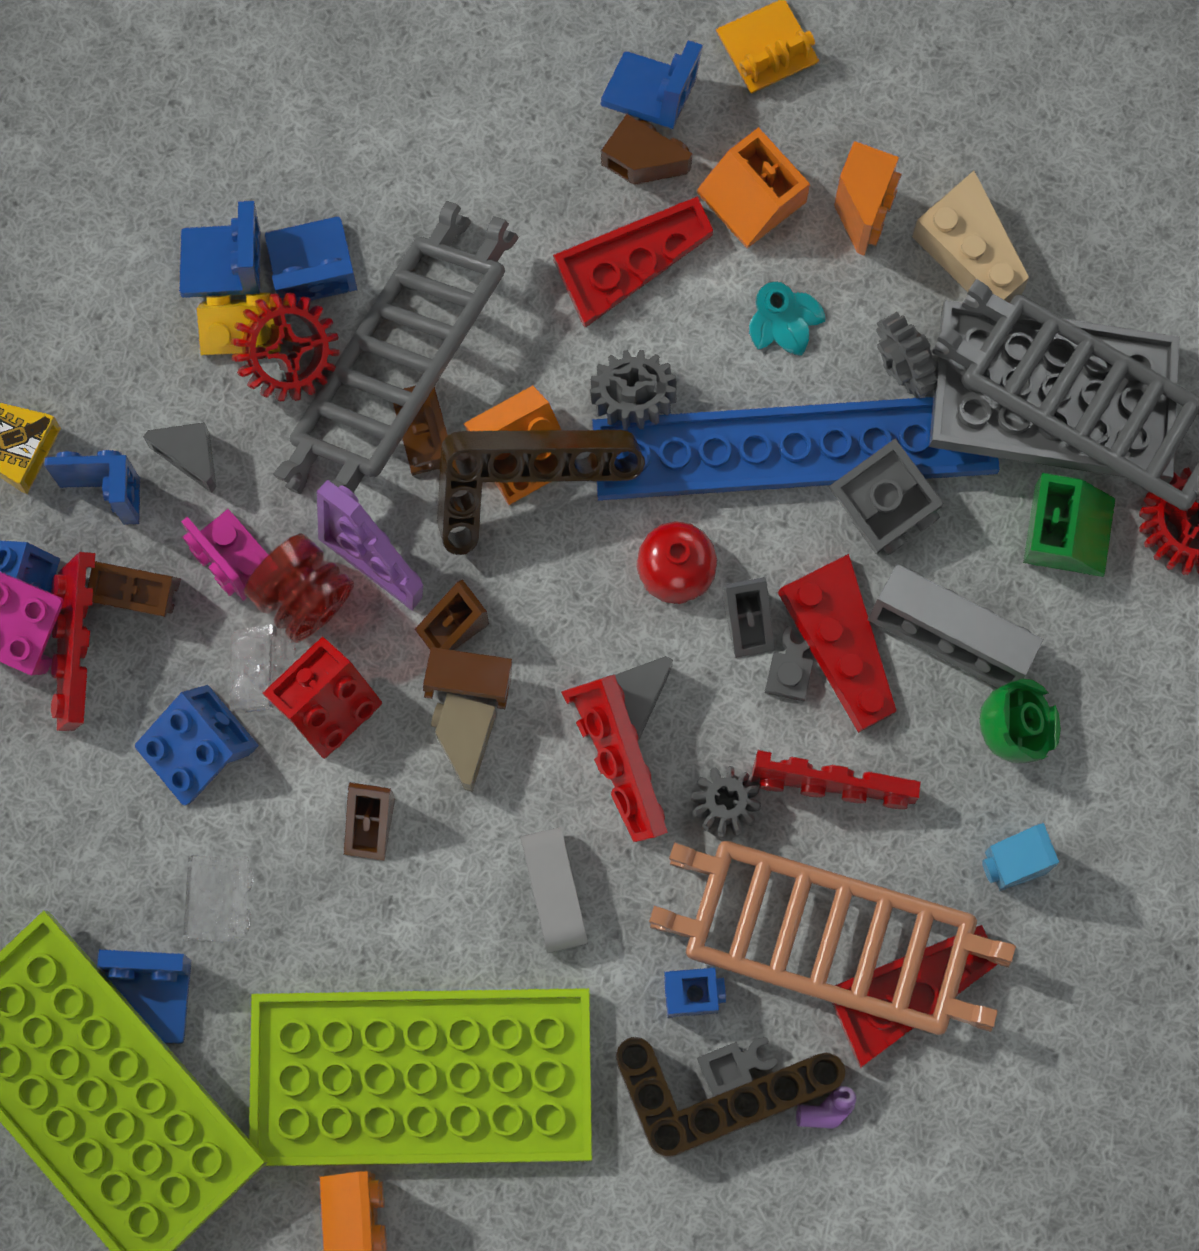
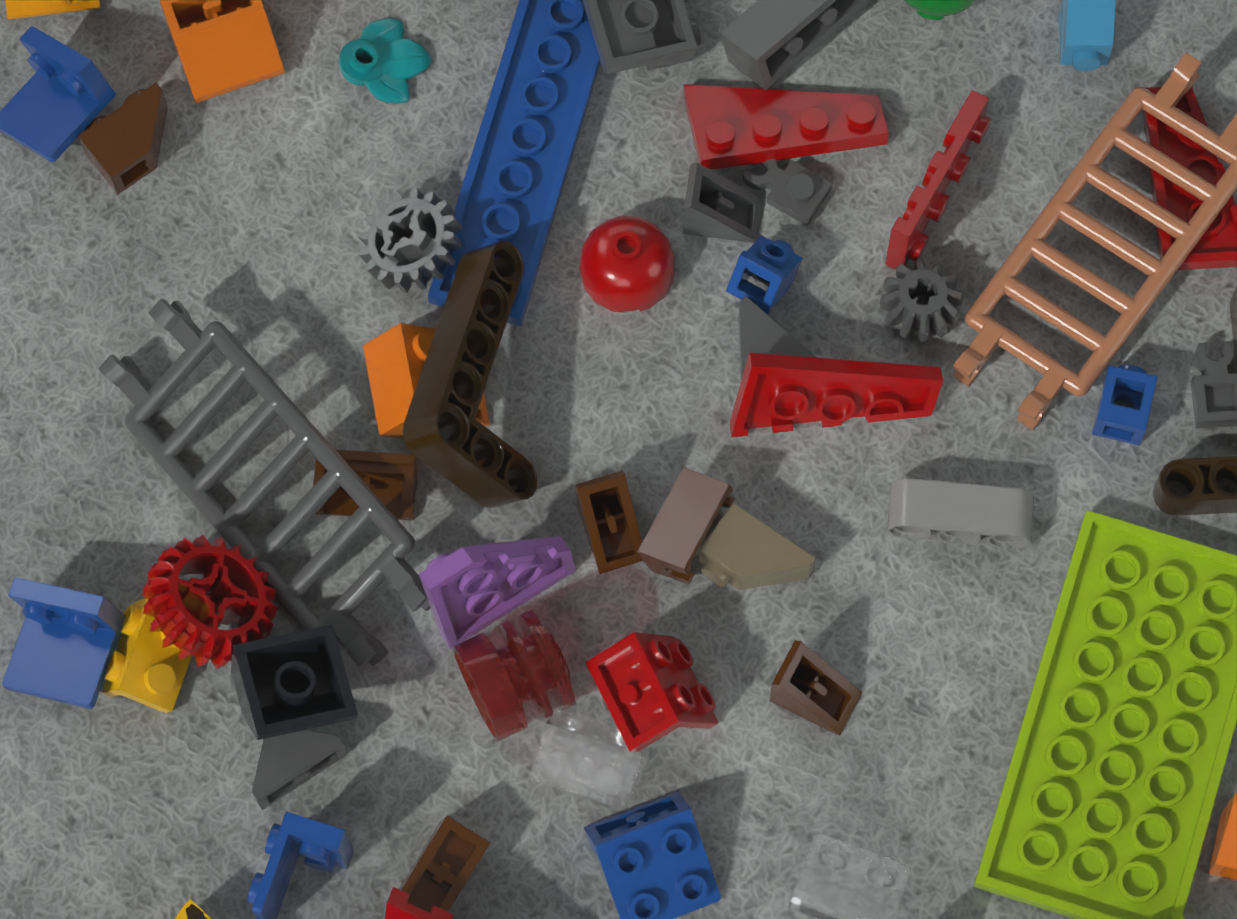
camera: 70 degrees left, 5 degrees down
(229, 550) = (437, 748): dark pink bracket -> none
(236, 429) = (292, 682): none -> black slope
(311, 260) = (107, 545): blue bracket -> none
(625, 259) = (247, 204): red wing -> none
(703, 669) = (771, 261): none -> blue brick

